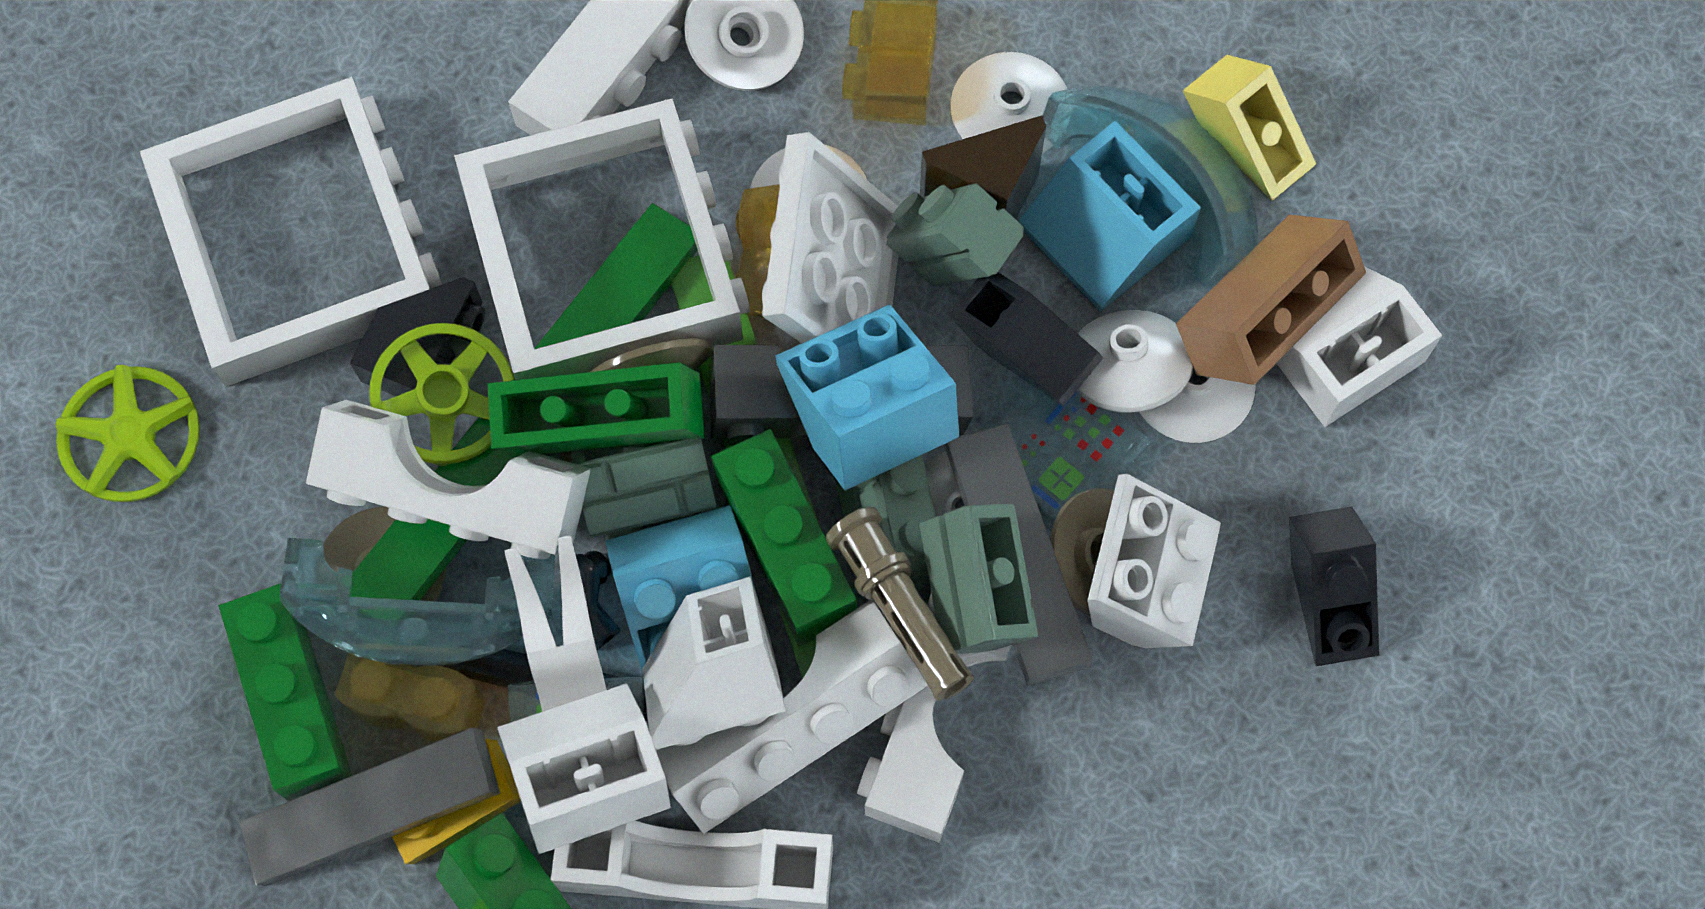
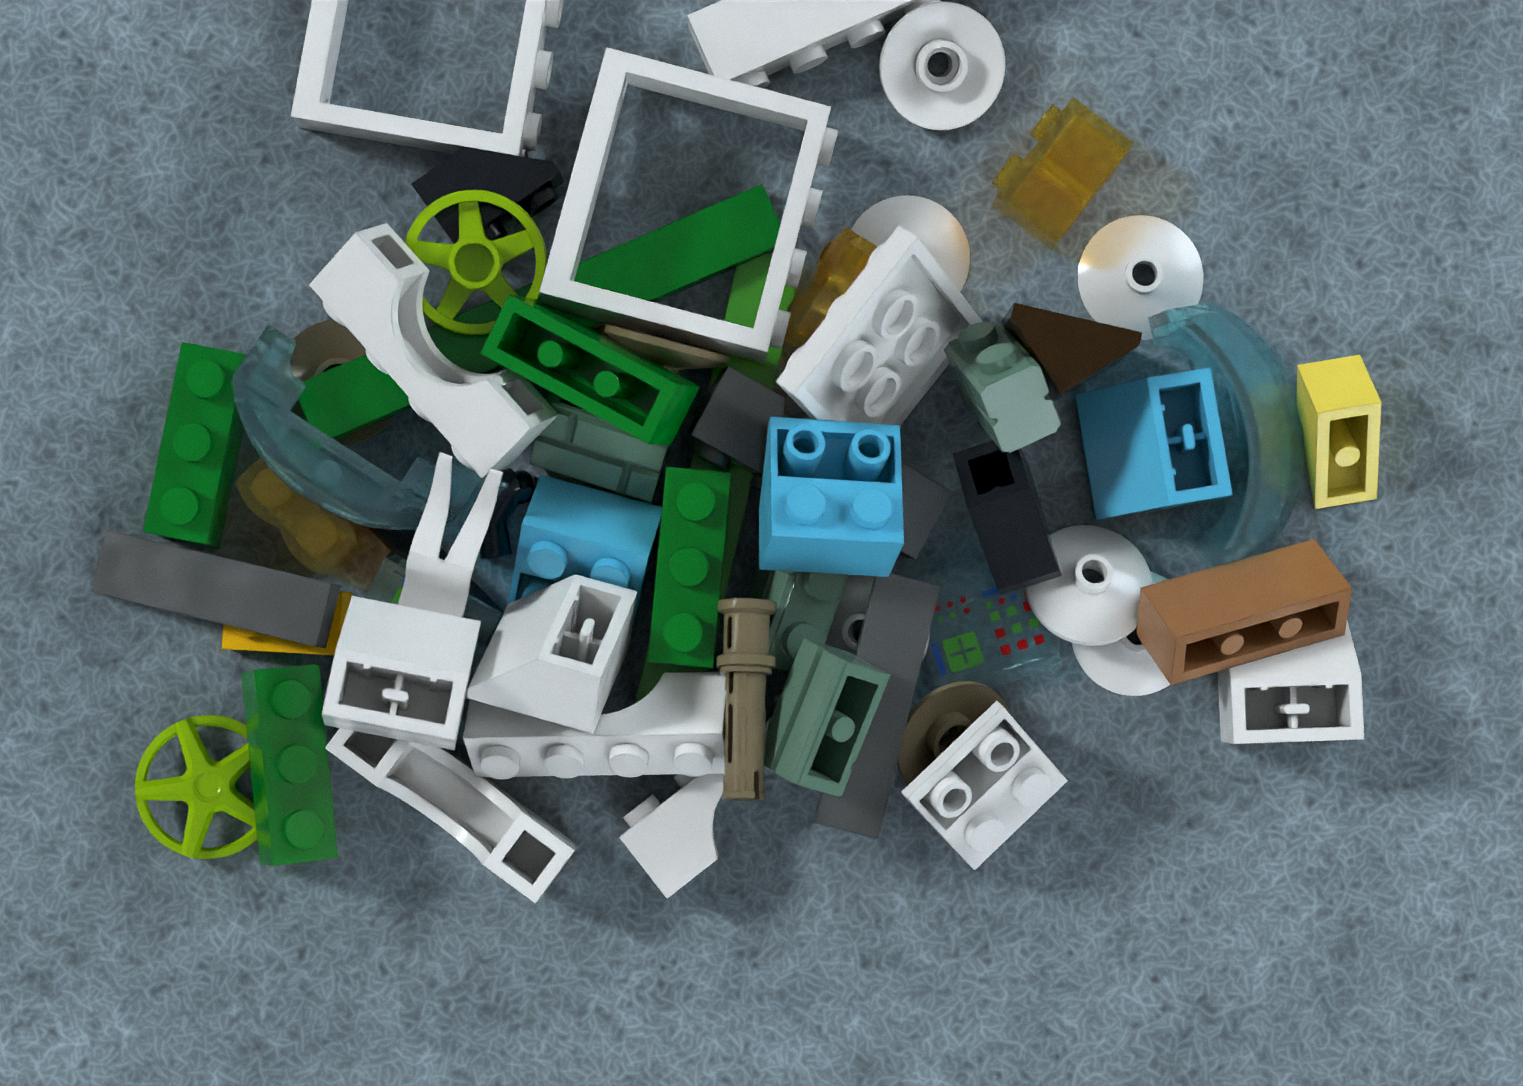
camera: 25 degrees right, 15 degrees up
(126, 432) = (191, 122): lime wheel -> none
(1336, 584) = (1134, 885): black slope -> none

